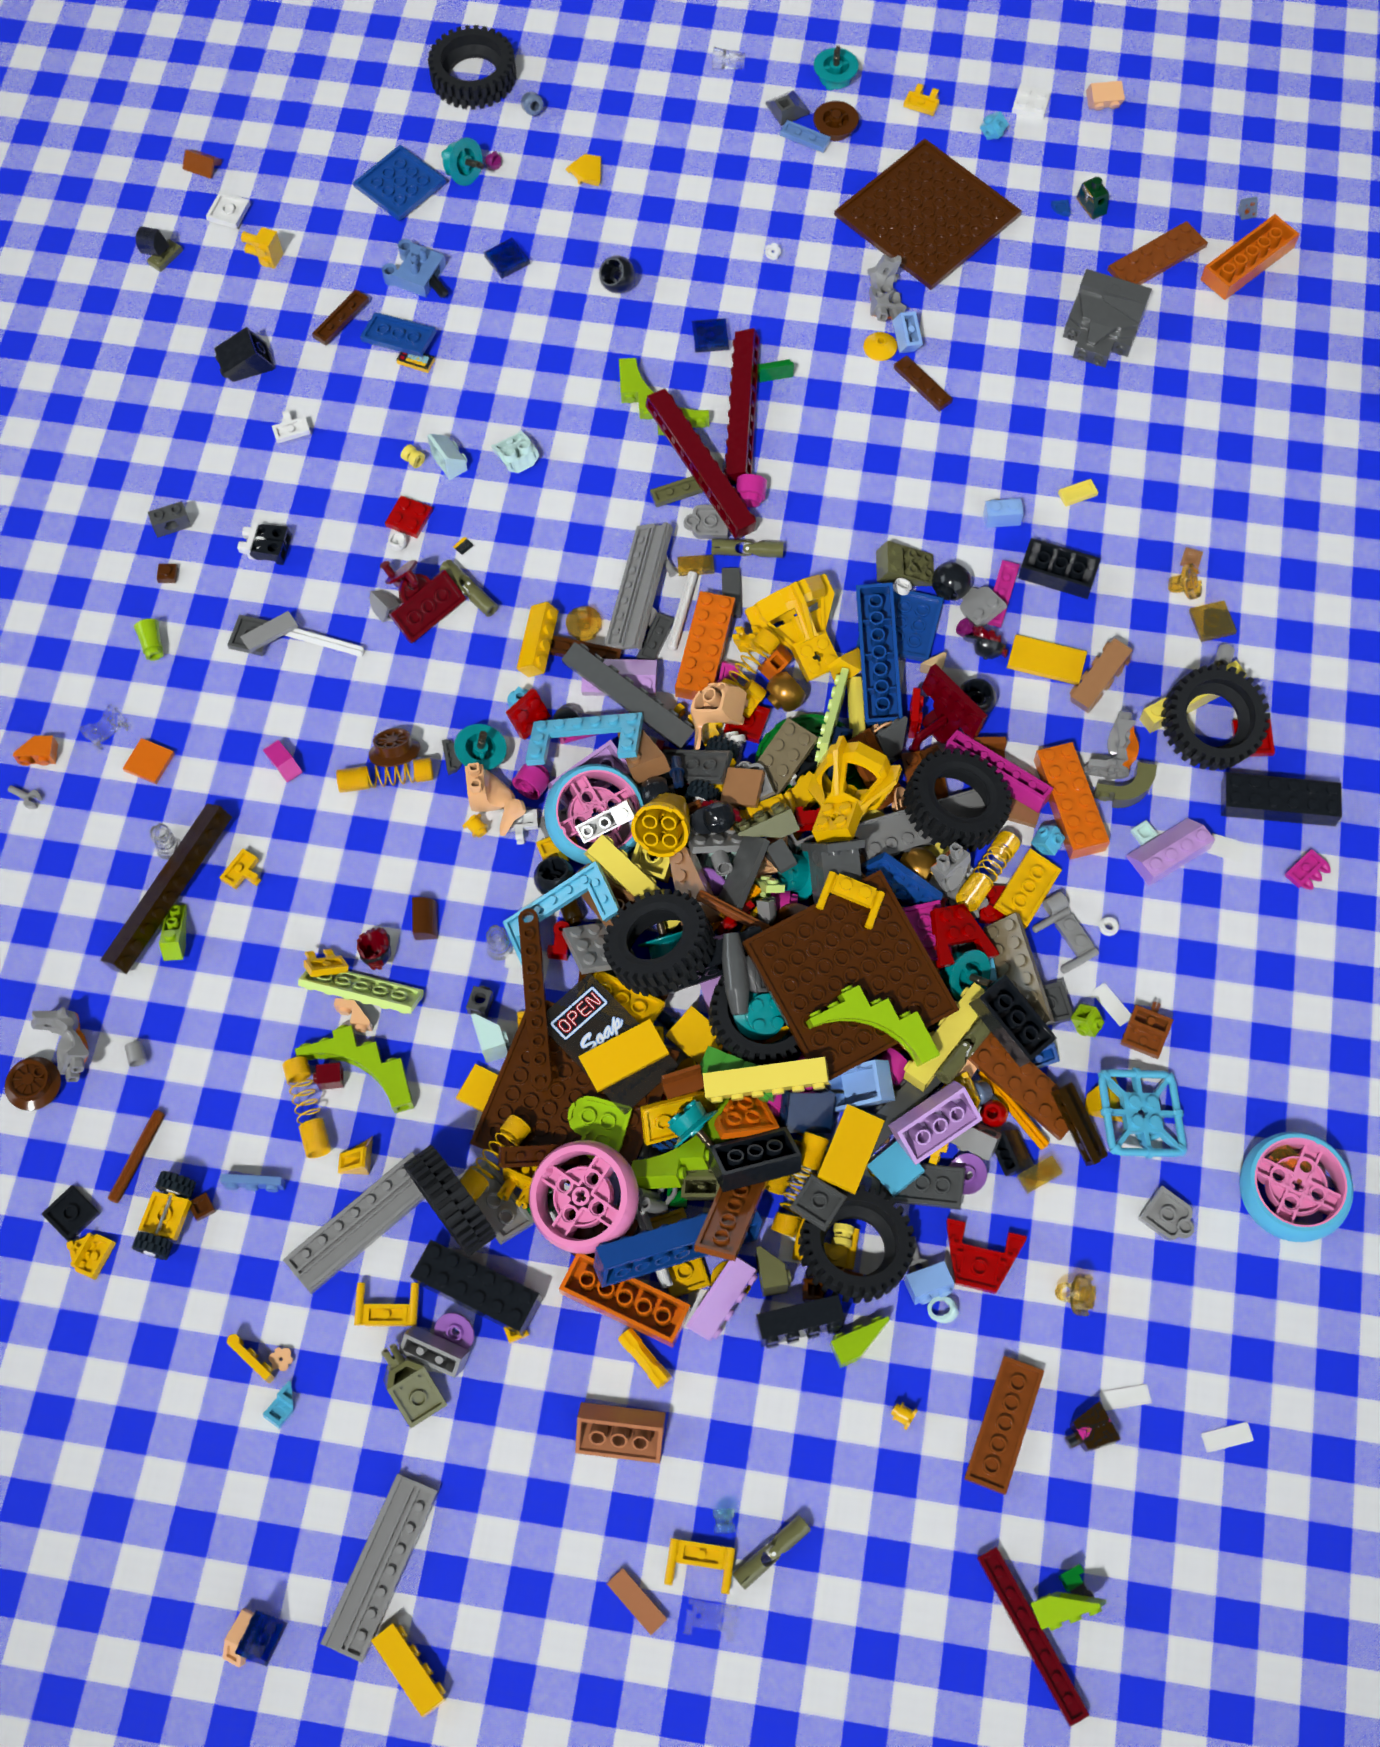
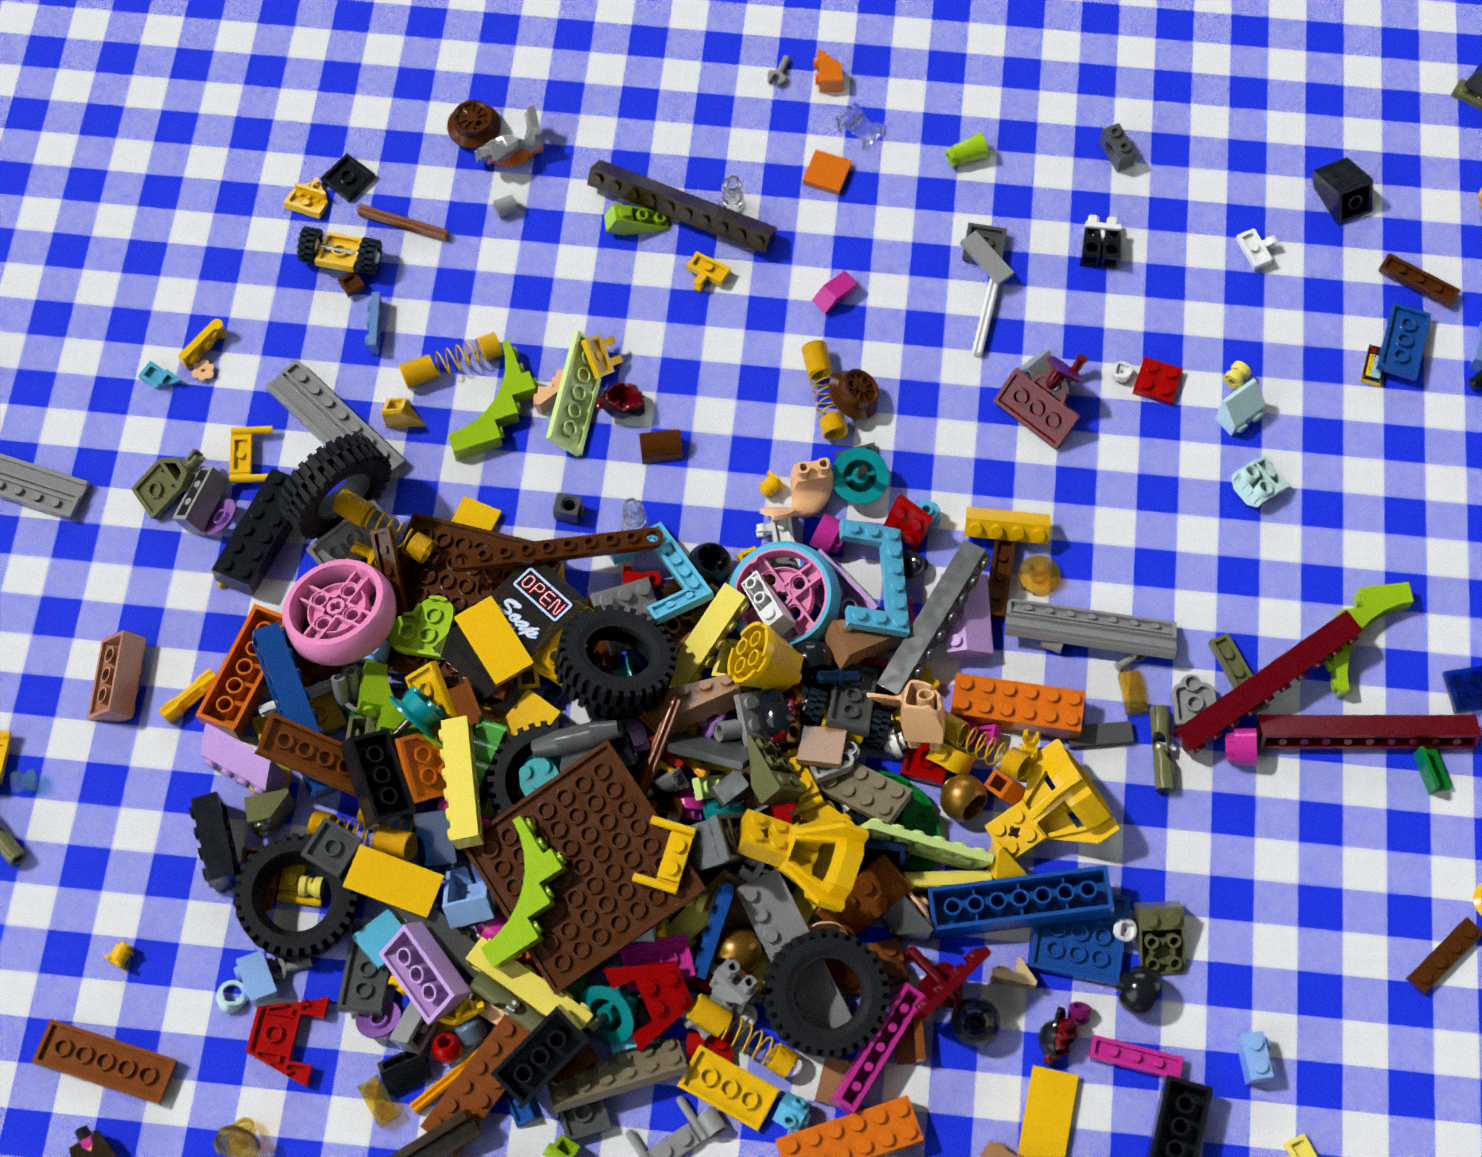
camera: 85 degrees right, 0 degrees up
(167, 573) = (1053, 156): reddish brown plate -> none
(329, 1076) = (484, 377): dark red brick -> none
(463, 545) = (1127, 441): black sticker -> none
(475, 594) = (1060, 458): olive piece -> none
(491, 1039) = (524, 515): light aqua slope -> none
(656, 637) = (1027, 654): dark grey tile -> none
(682, 610) = (1068, 681): white axle -> none
(853, 1345) = (193, 901): lime slope -> none
(916, 713) = (948, 947): red plate -> none
(981, 605) = (1111, 1030): light grey plate -> none

